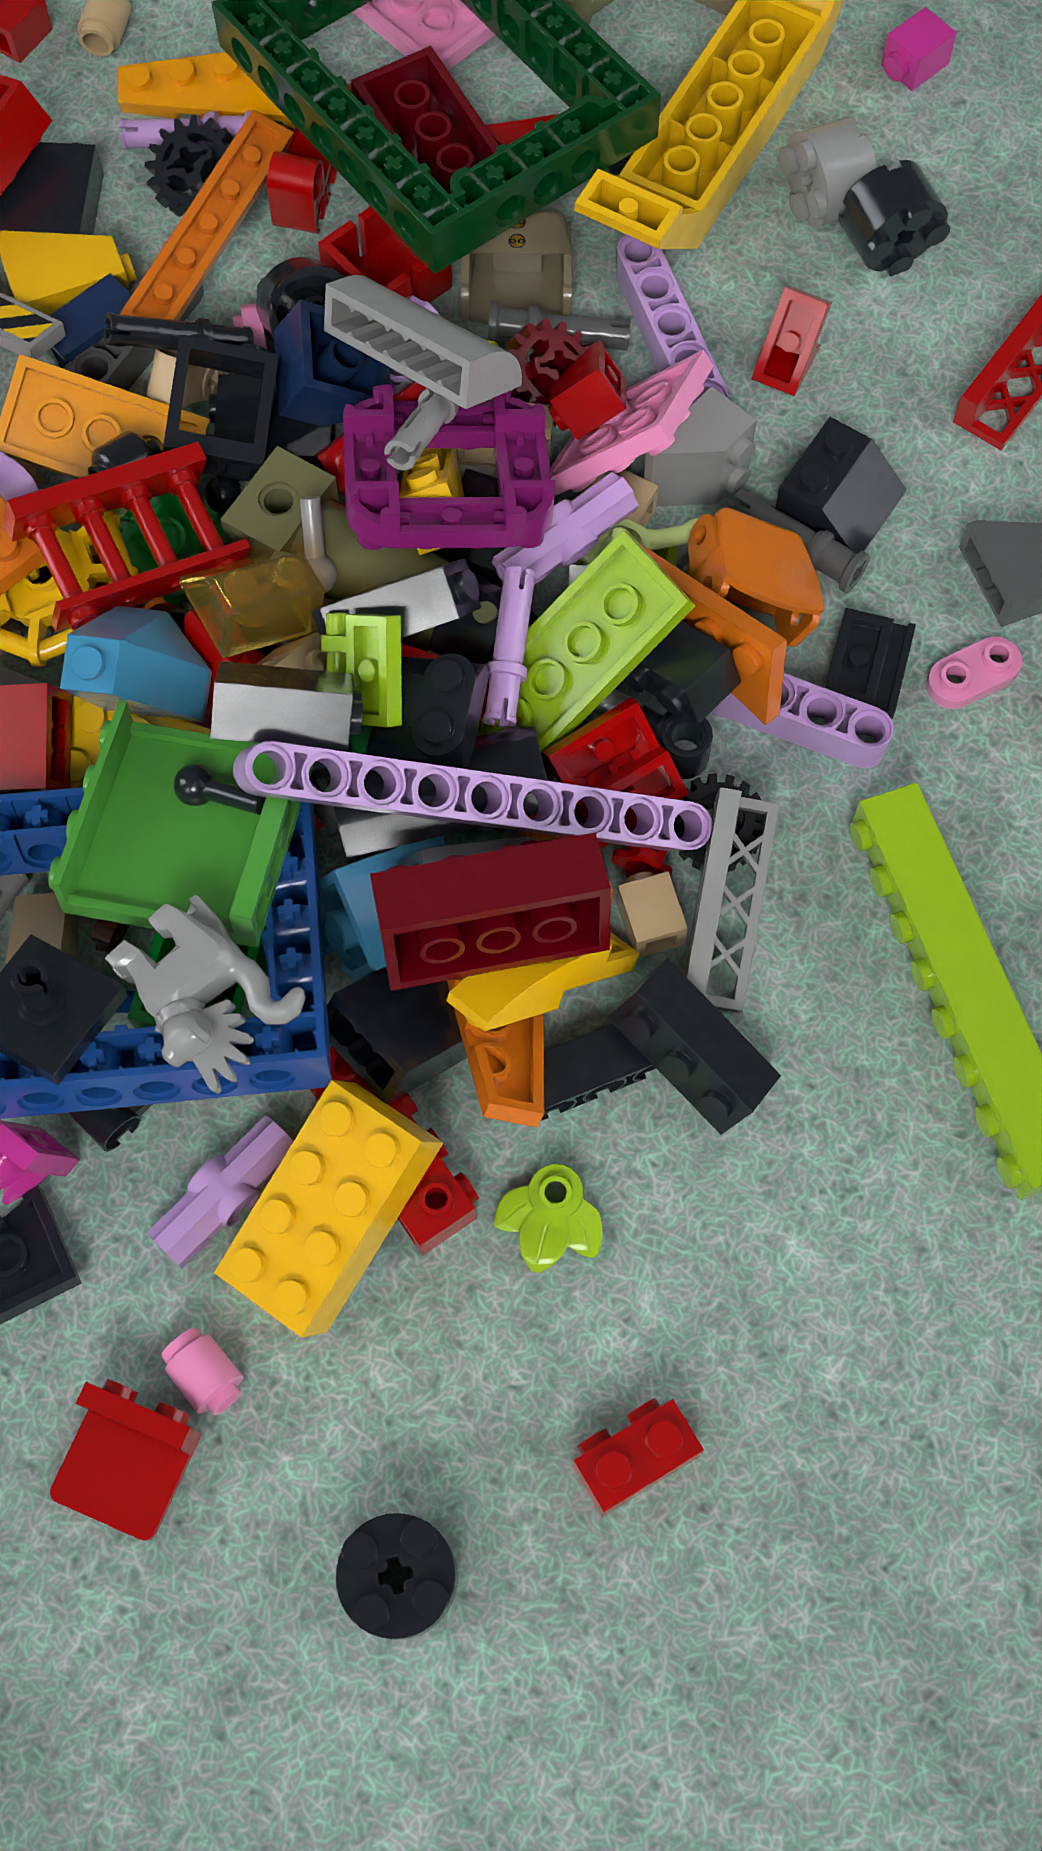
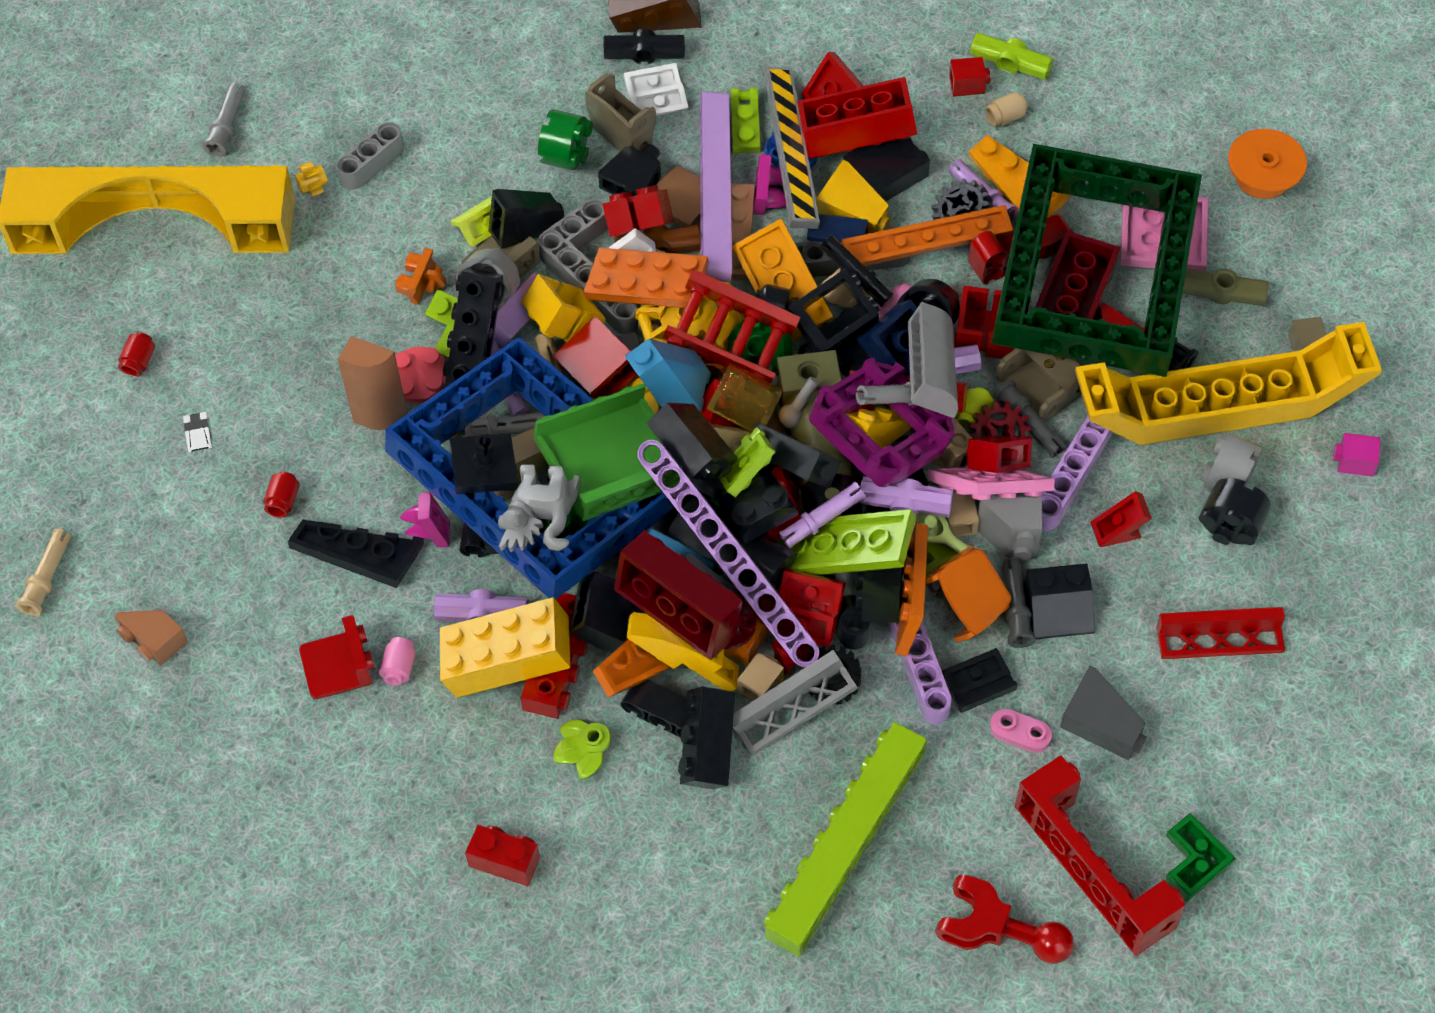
camera: 50 degrees right, 10 degrees down
(197, 785) = (632, 443): black bar -> none
(369, 1556) = (374, 798): black brick -> none

